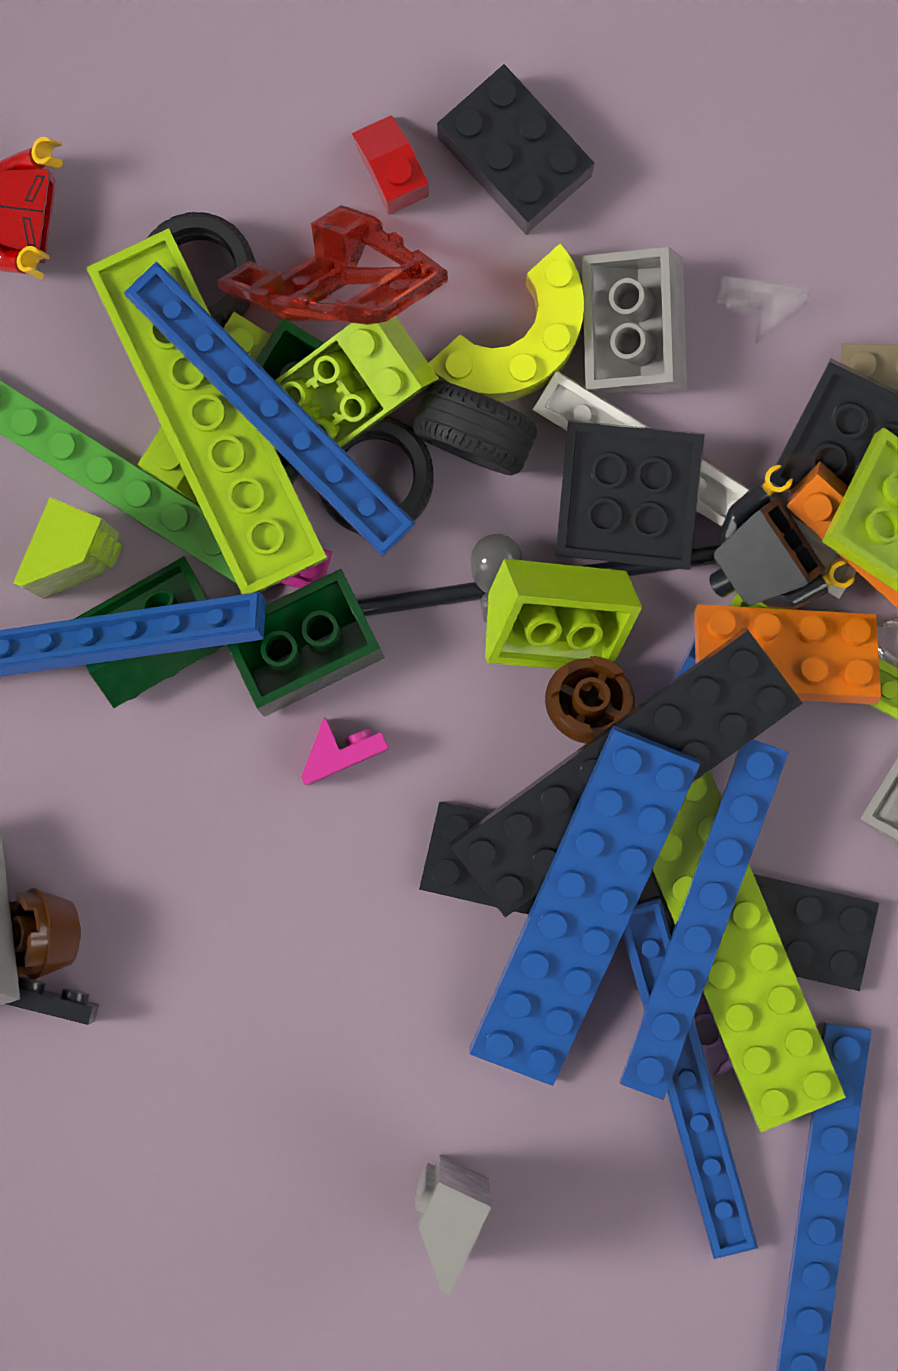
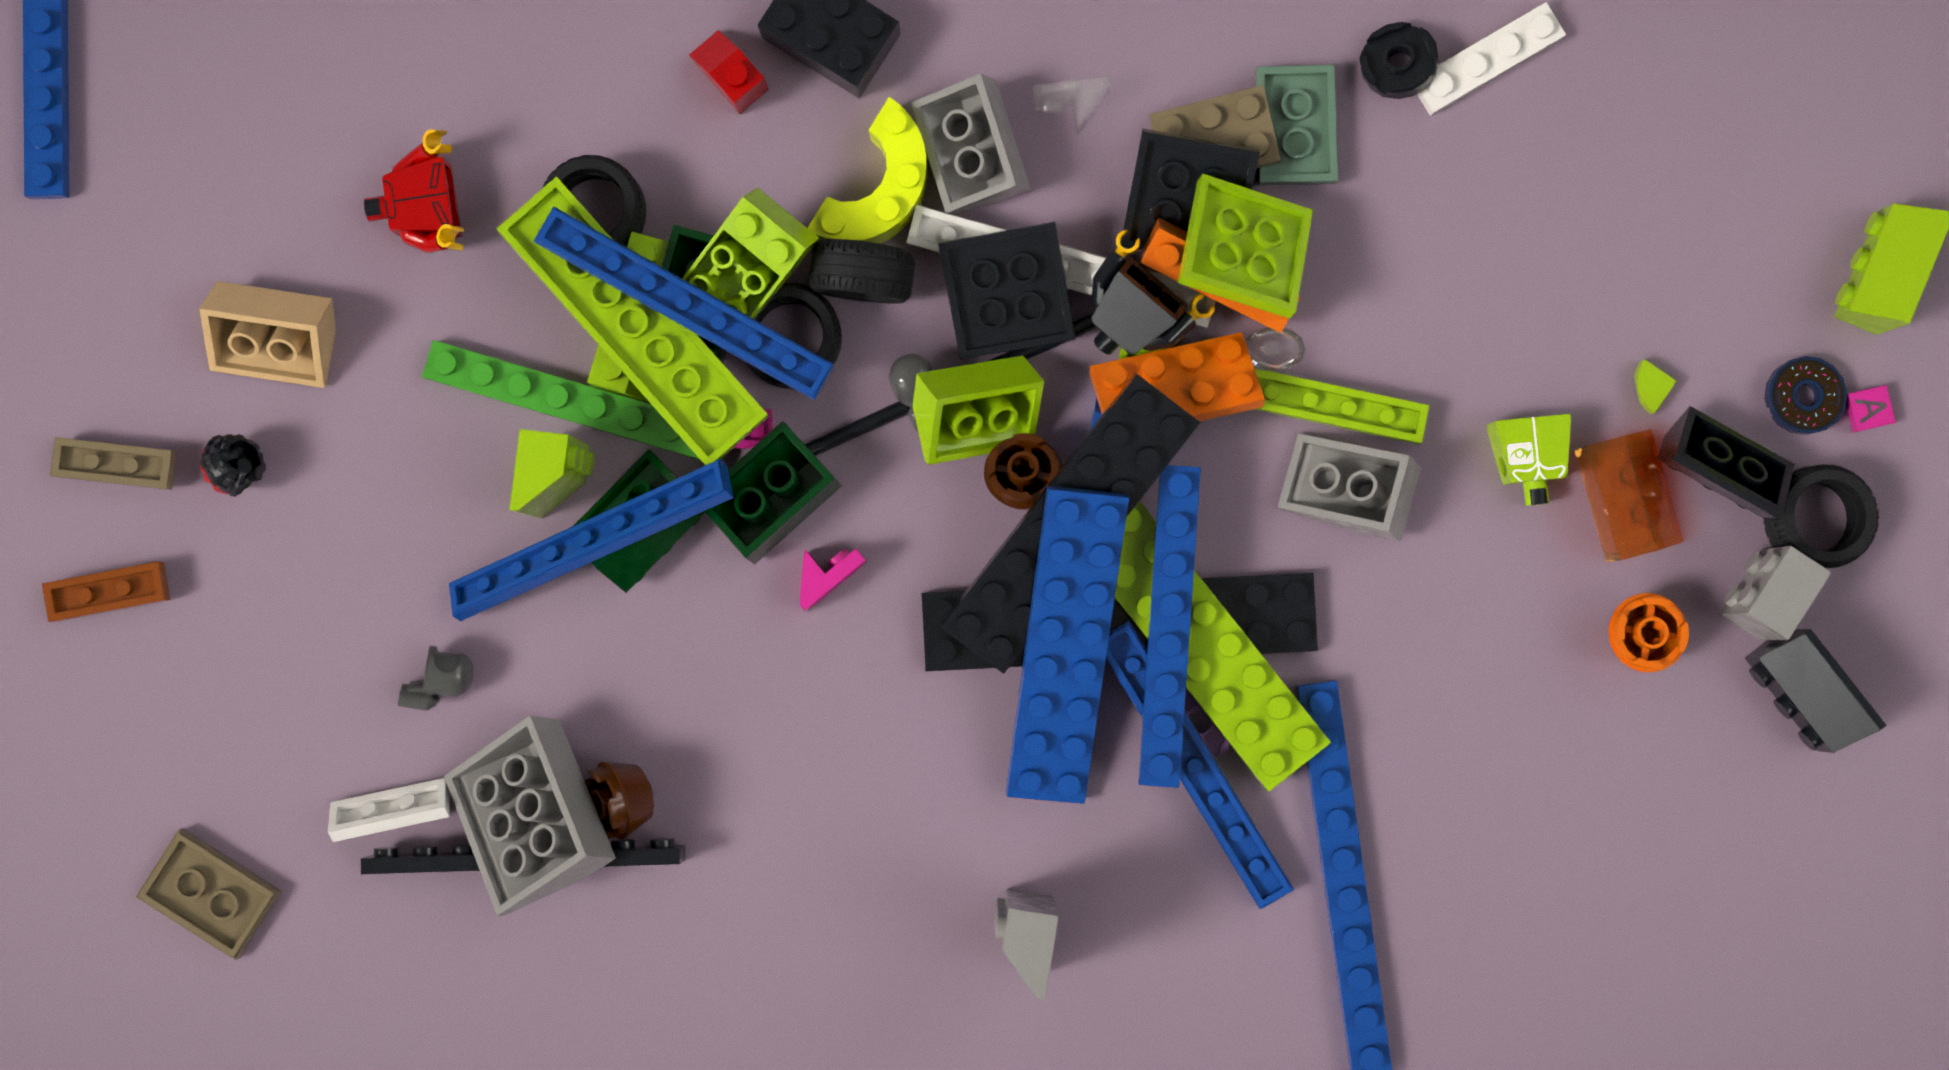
camera: 15 degrees left, 0 degrees up
(338, 246) = (704, 152): clear red windscreen -> none

